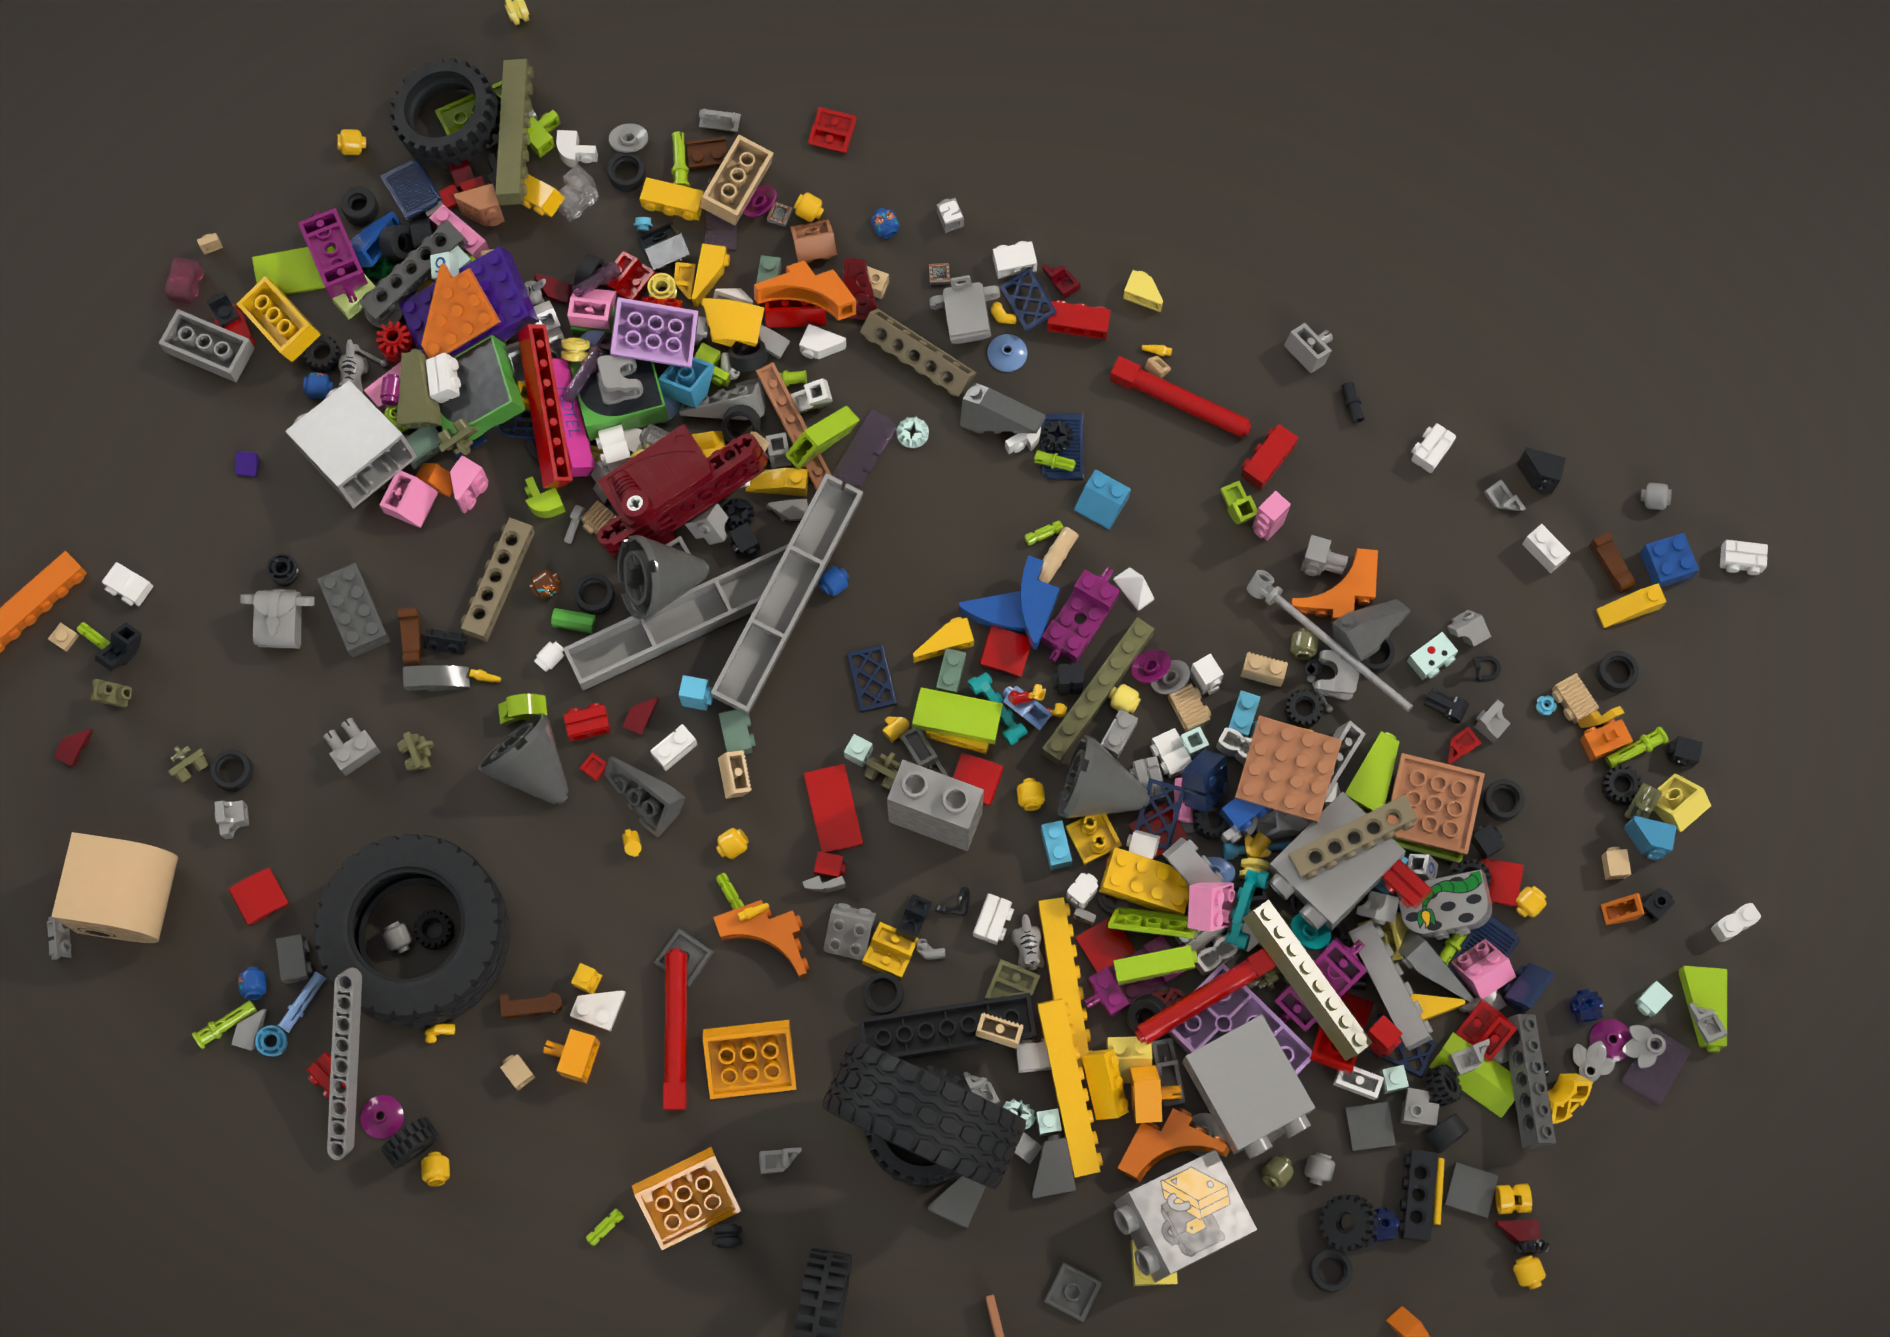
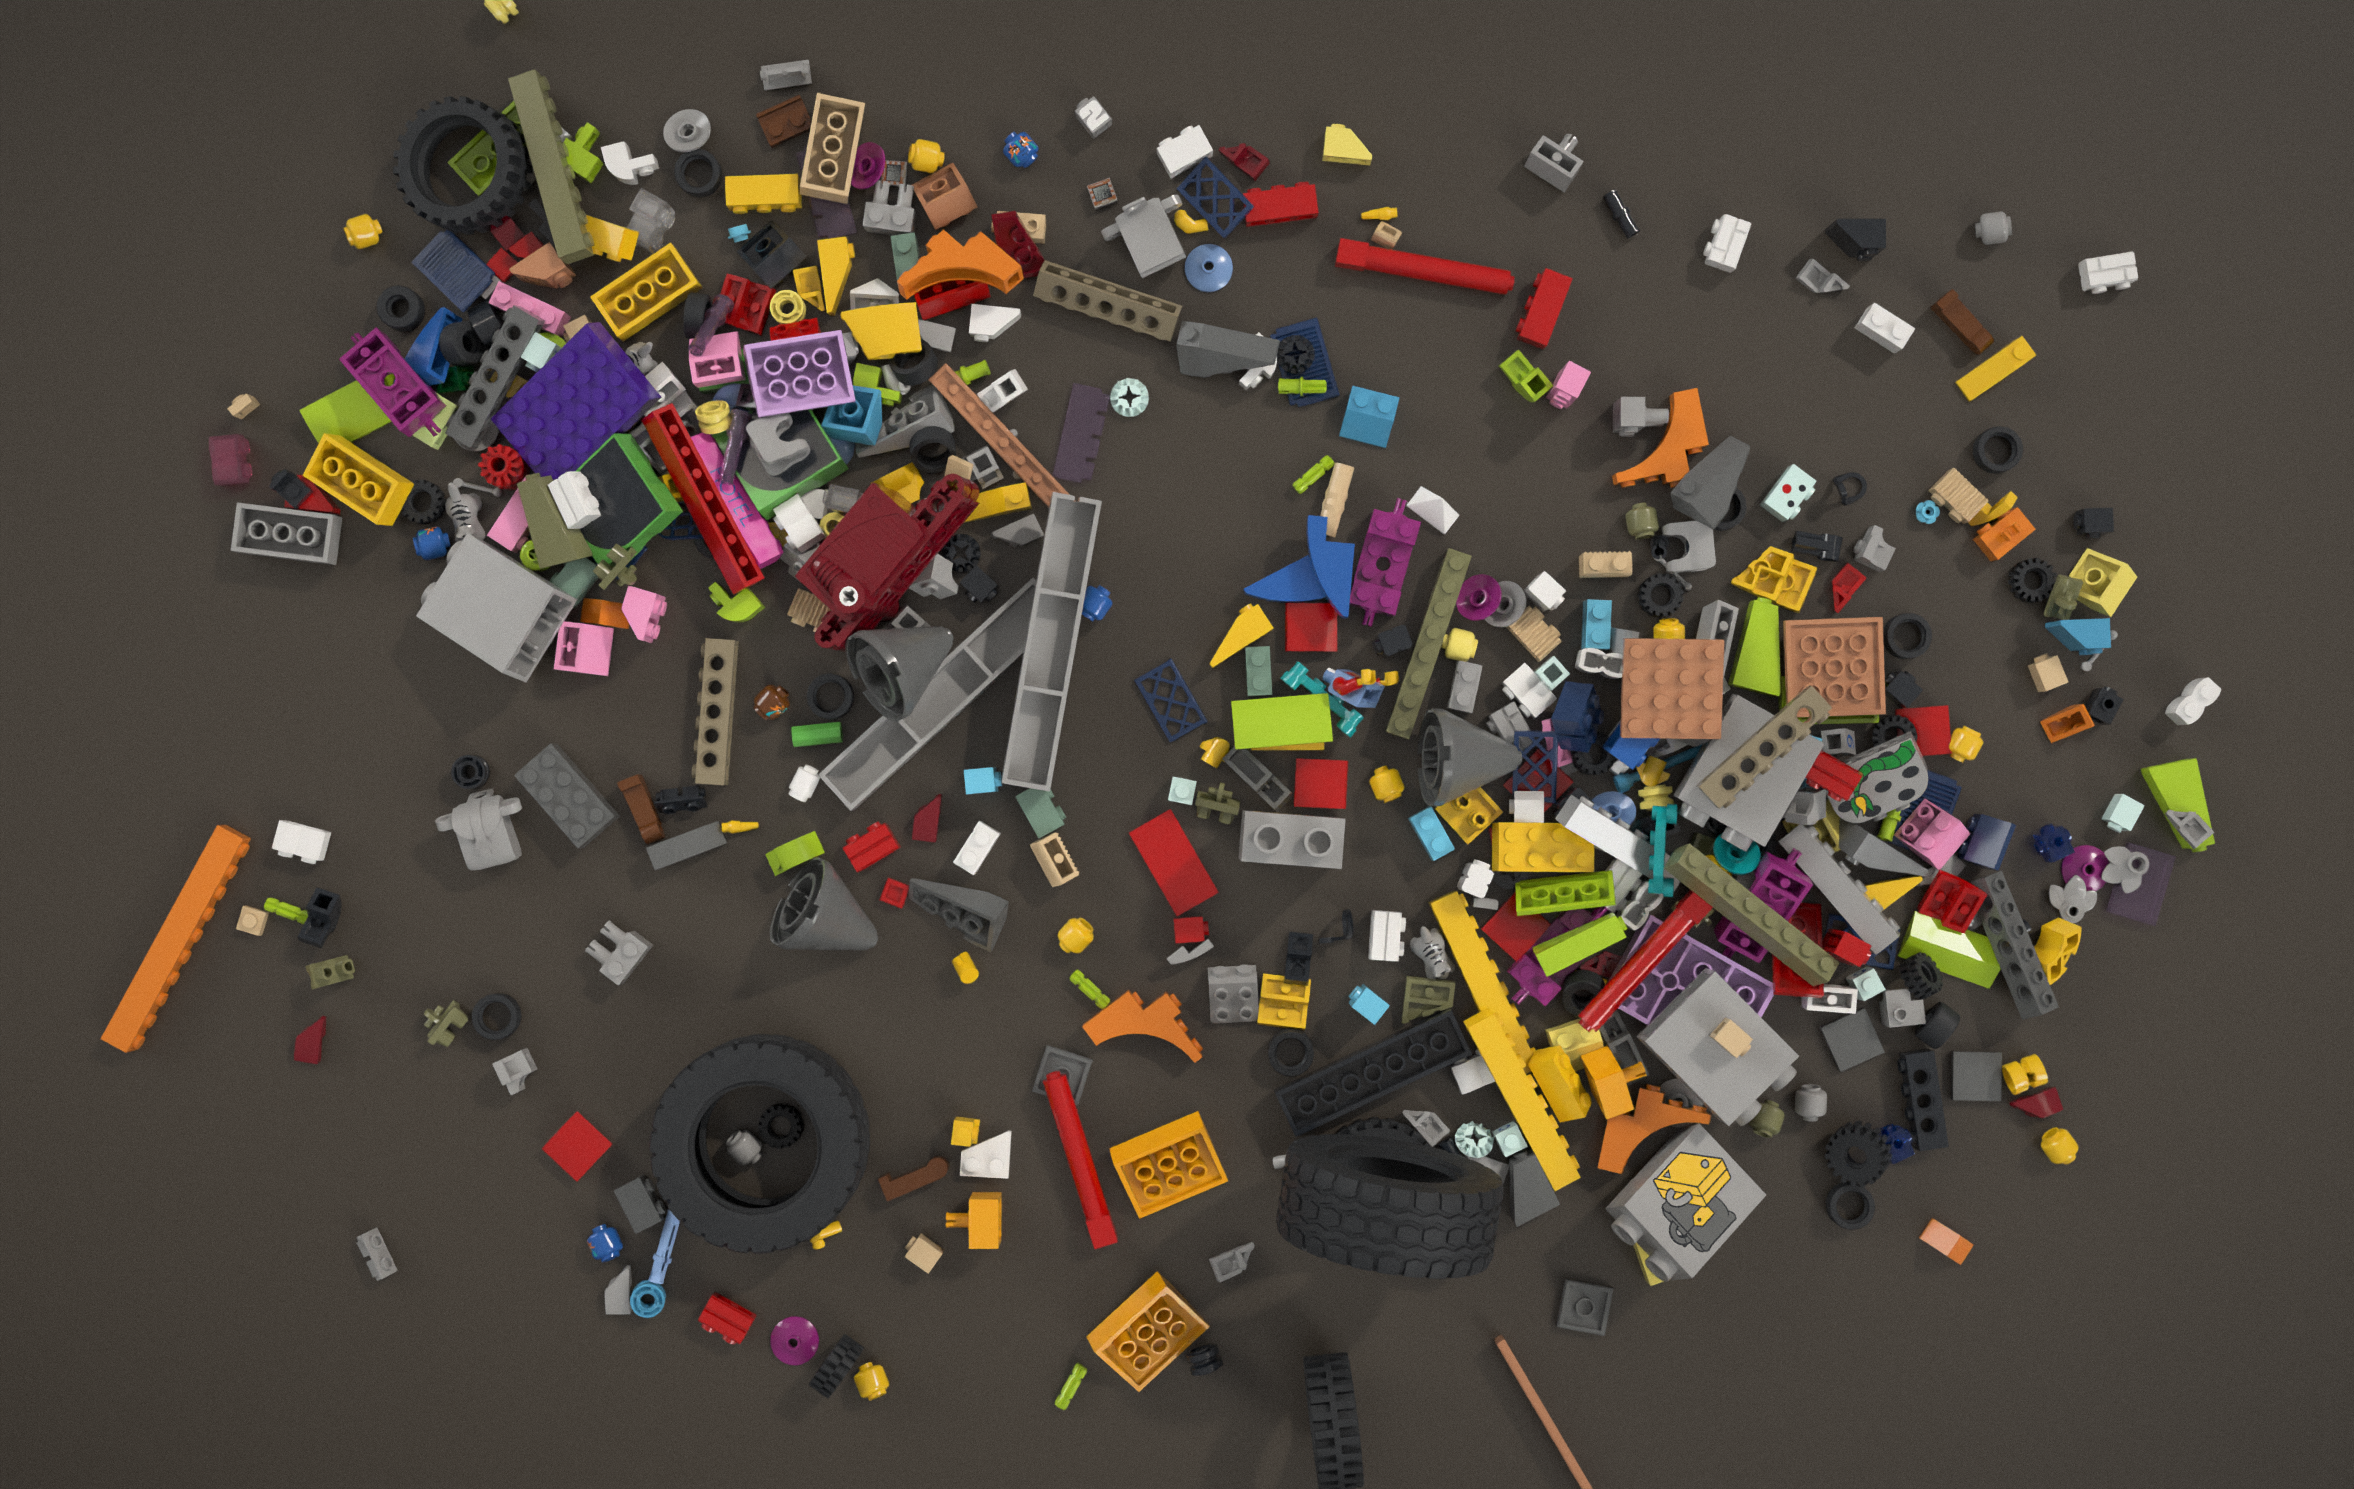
camera: 20 degrees left, 15 degrees up
(114, 888) = (419, 1196): tan brick -> none
(215, 1029) = (583, 1303): lime pin -> none
(246, 463) = (384, 659): dark purple slope -> none
(348, 1054) = (738, 1310): light grey beam -> none
(390, 390) = (518, 529): magenta brick -> none
(419, 751) = (694, 933): olive hips -> none
(449, 259) = (531, 369): light aqua brick -> none
(456, 312) = (564, 420): orange wing -> none
(554, 245) = (646, 292): none -> yellow brick
(554, 289) = (664, 343): dark red slope -> none
(576, 515) = (780, 613): light grey bar -> none
(679, 169) = (760, 152): lime pin -> none
(751, 912) = (1123, 1009): yellow piece -> none
(760, 242) = (890, 219): none -> light grey brick
(821, 436) = (1030, 438): lime slope -> none
(832, 130) = (922, 48): red slope -> none
(928, 952) = (1325, 991): light grey arm -> none
(960, 968) = (1368, 1003): none -> medium azure brick
(999, 1030) = (1433, 1066): tan brick -> none
(1210, 905) = (1624, 863): bright pink slope -> none
(1260, 1072) = (1731, 1038): none -> tan brick
(1261, 587) = (1578, 469): flat silver piece -> none
(1410, 728) = (1778, 578): none -> yellow slope
(1436, 1220) = (1944, 1095): yellow bar -> none
(1469, 626) = (1821, 448): light grey brick -> none
(1469, 1058) = (1942, 938): light grey slope -> none
(1532, 1247) = (2057, 1120): black gear -> none
(1644, 744) = (2047, 525): lime pin -> none
(1652, 869) = (2086, 666): none -> light grey hinge
(1669, 560) = (2026, 302): blue brick -> none

